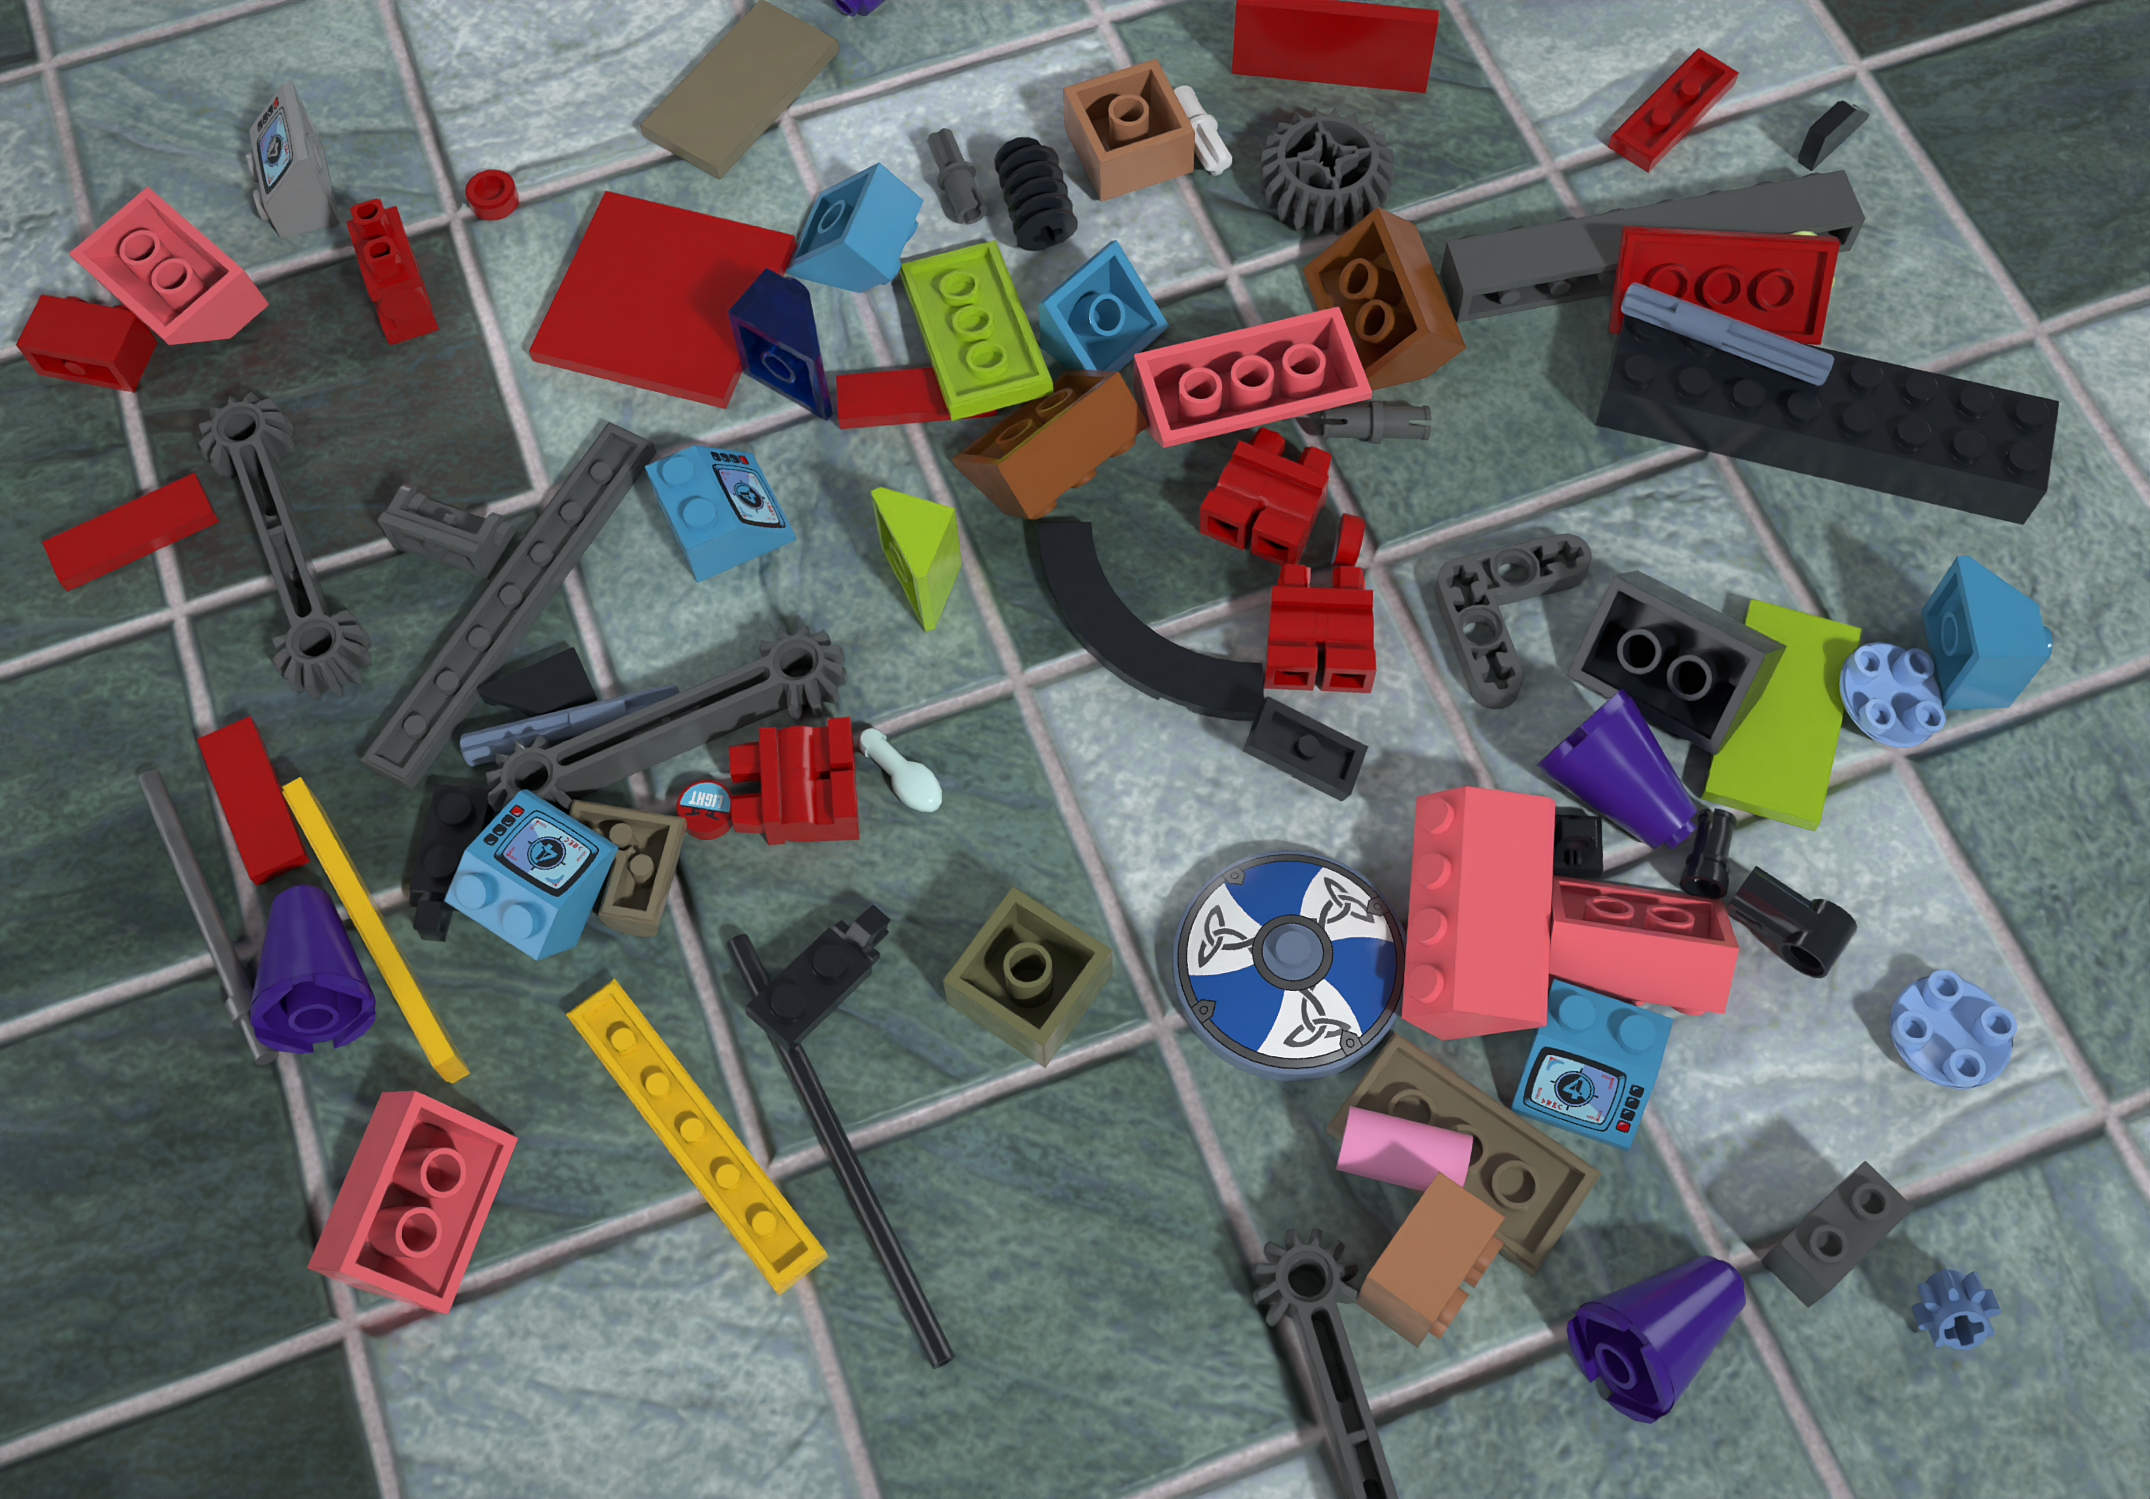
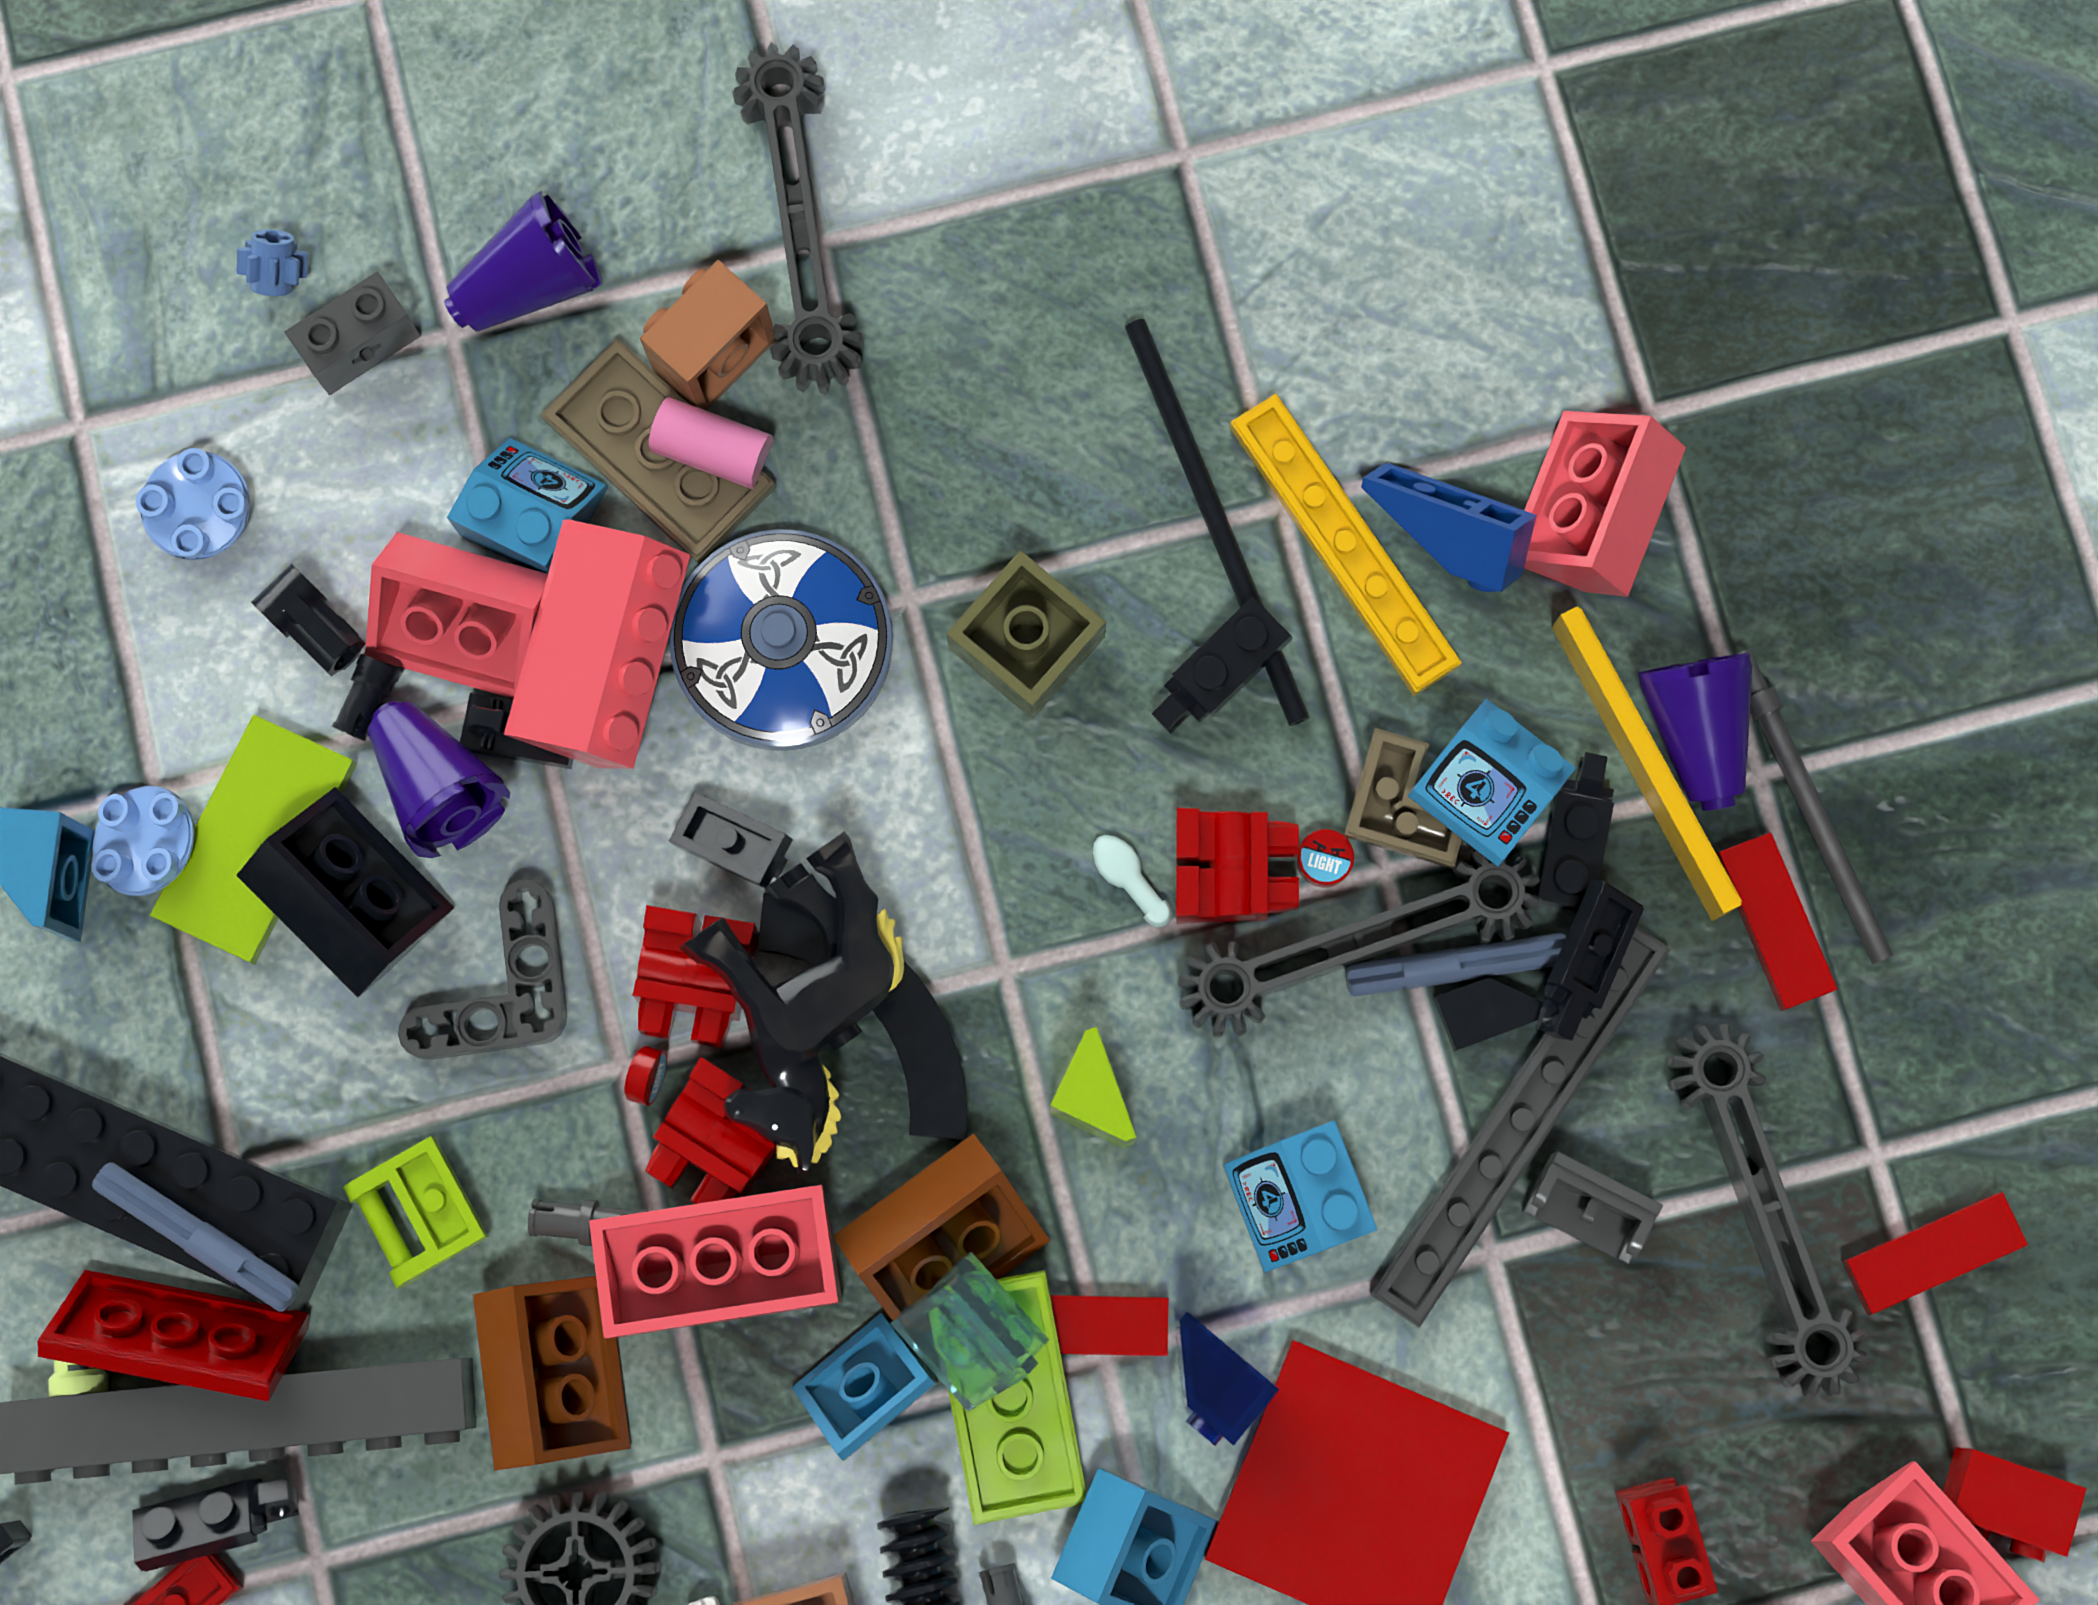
camera: 175 degrees left, 15 degrees up
(439, 727) = (1588, 959): none -> black hinge
(574, 1152) = (1458, 528): none -> blue slope
(1004, 342) = (971, 1333): none -> clear light blue bracket
(1201, 587) = (810, 1009): none -> black animal
(1524, 424) = (432, 1203): none -> lime plate
(1651, 173) = (209, 1521): none -> black hinge

